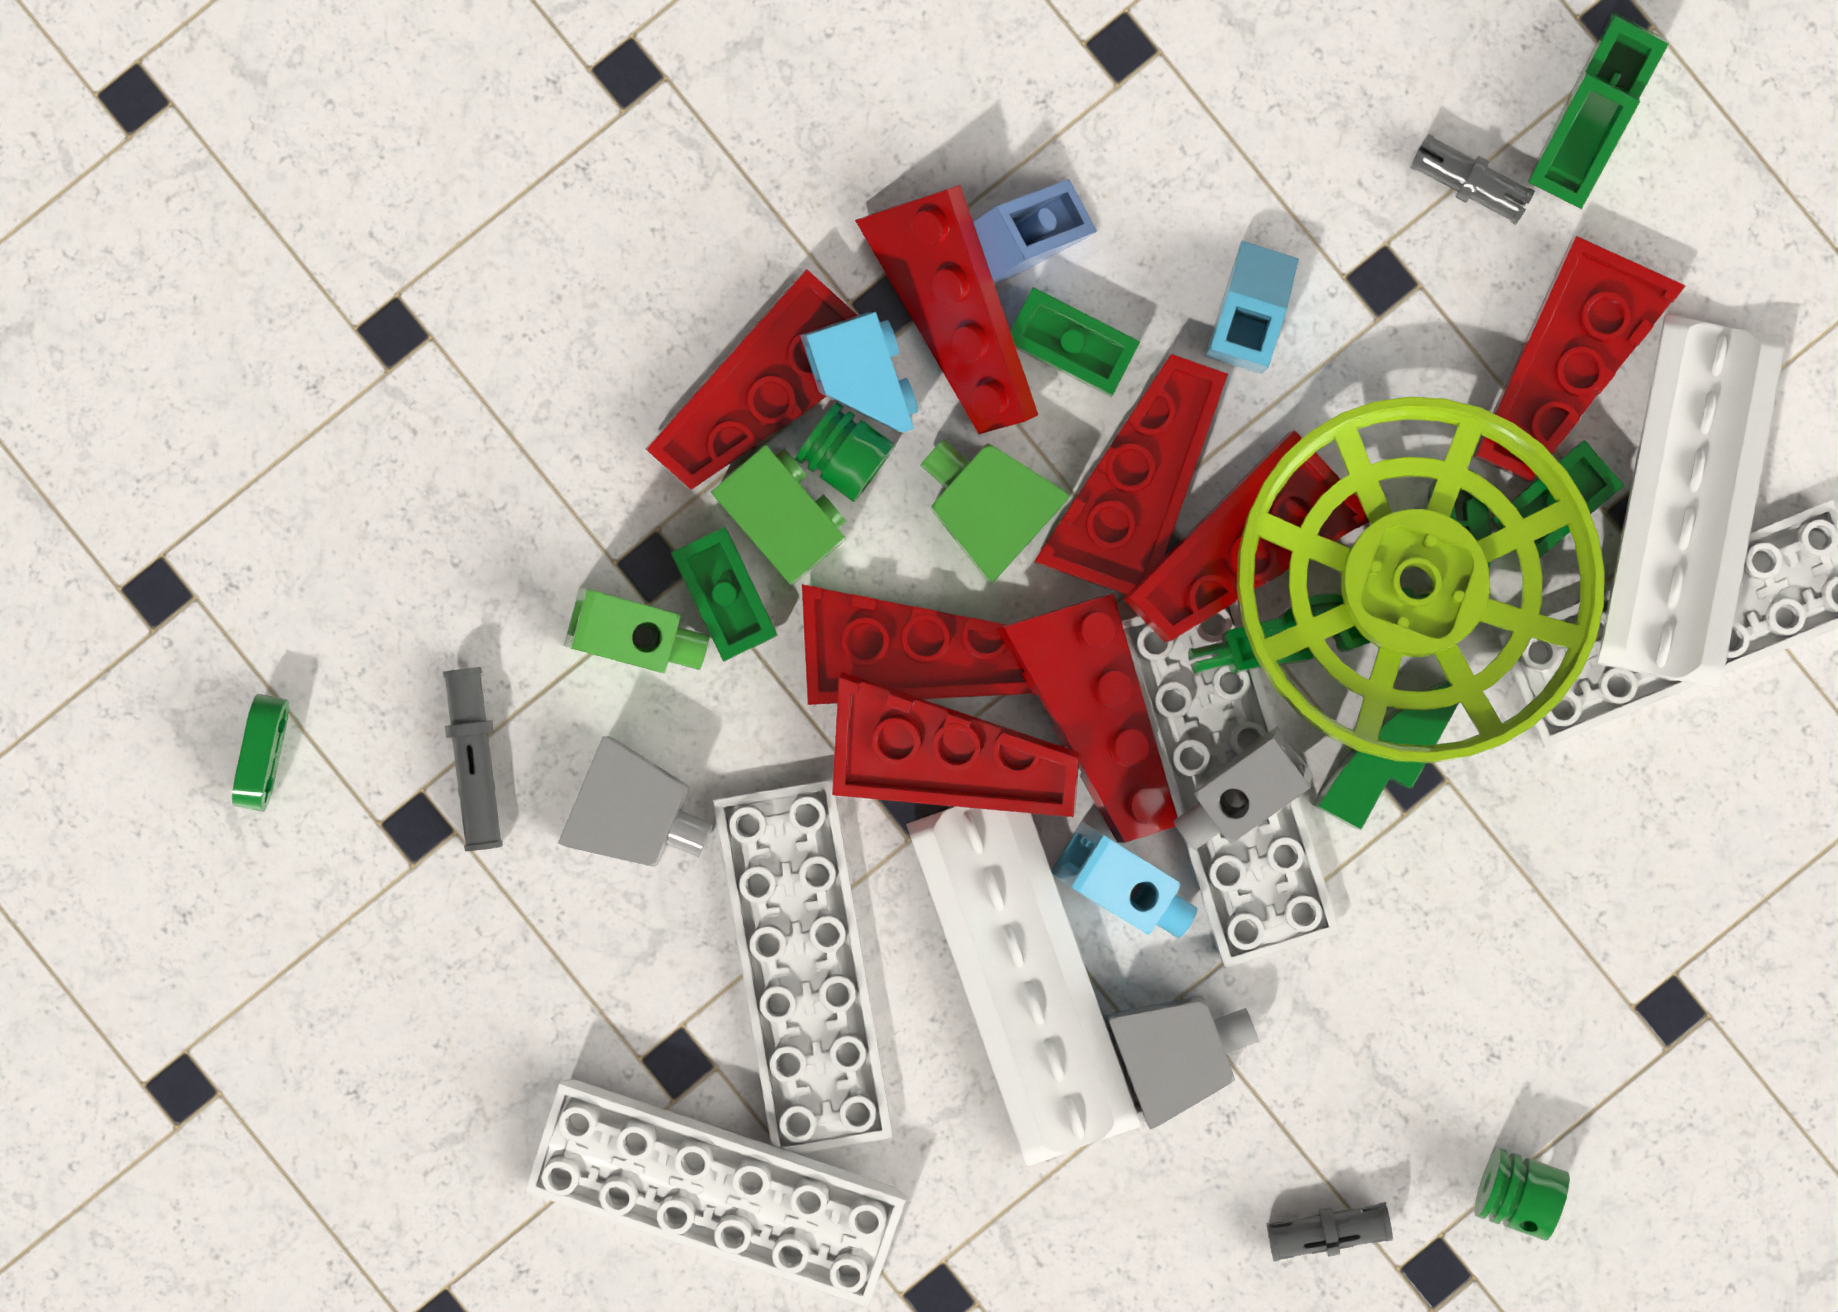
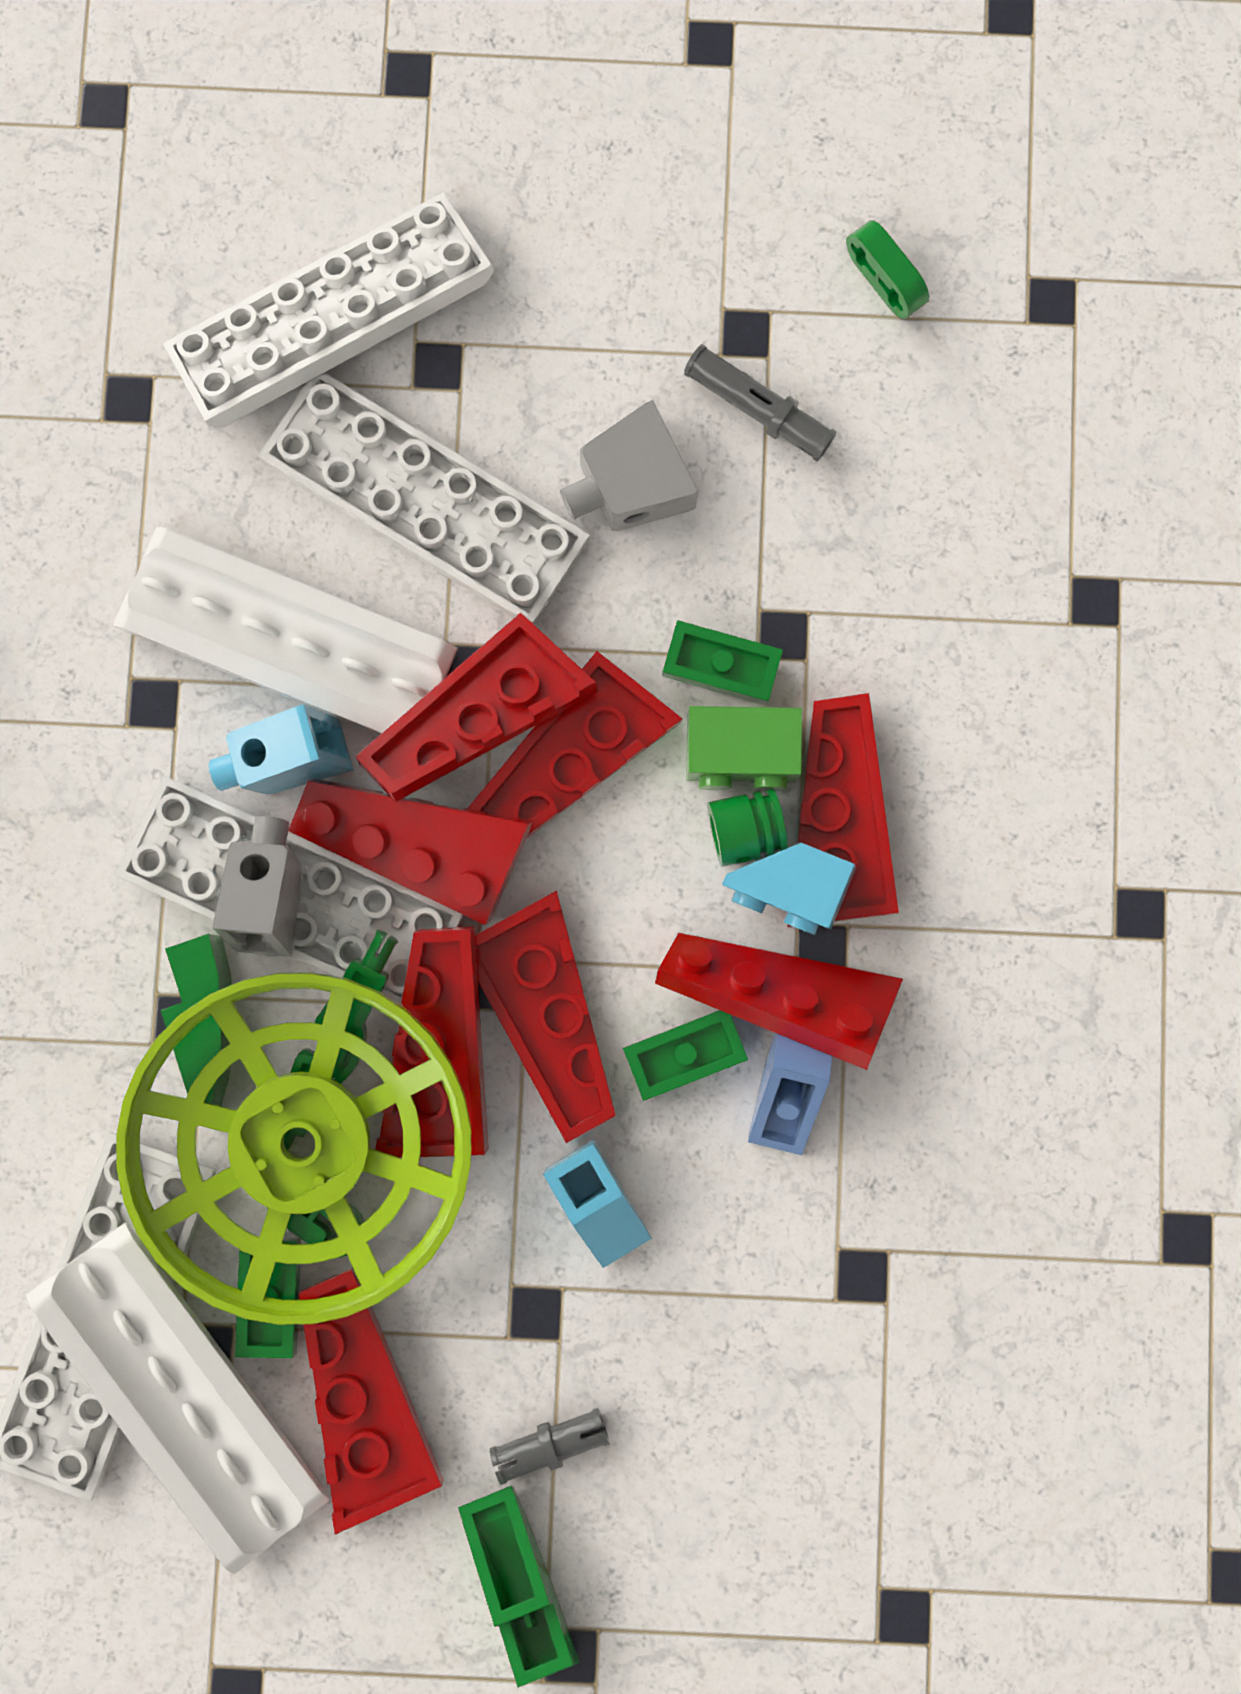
camera: 130 degrees right, 5 degrees down
(606, 625) = (768, 554): bright green torso -> none
(990, 504) = (622, 895): bright green torso -> none
(1178, 1053) = (136, 690): light grey torso -> none

